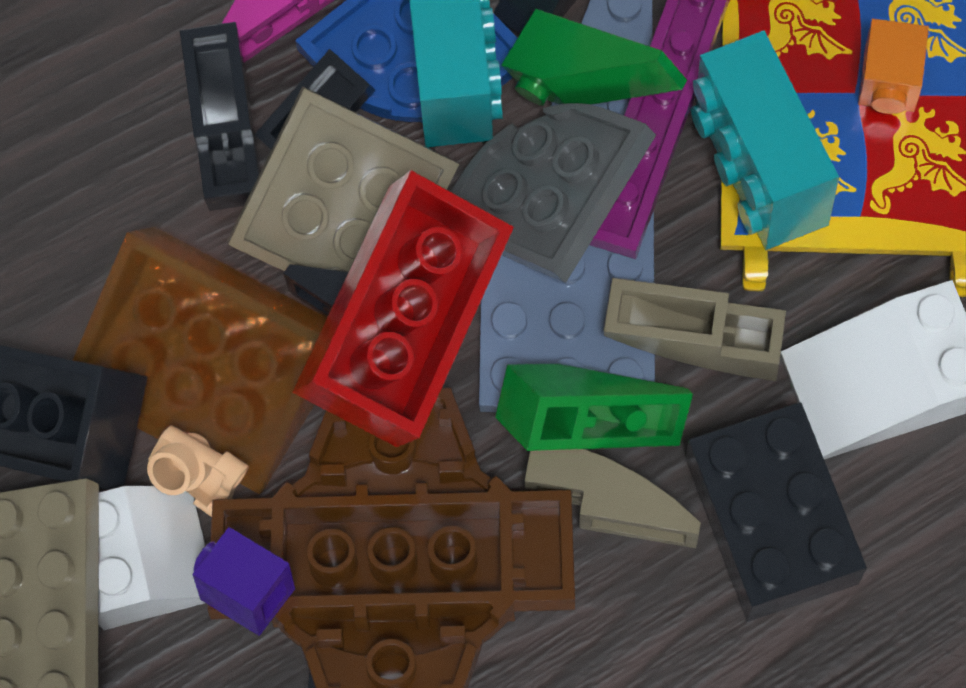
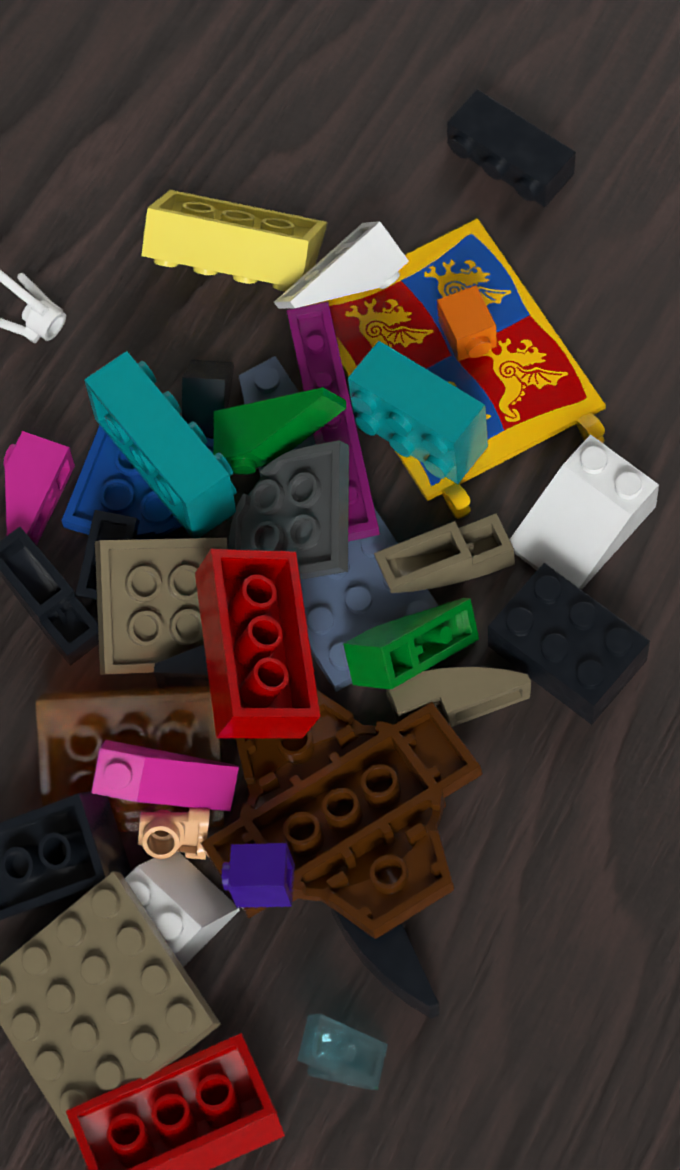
camera: 30 degrees left, 5 degrees down
(213, 400) = (163, 777): none -> dark pink slope

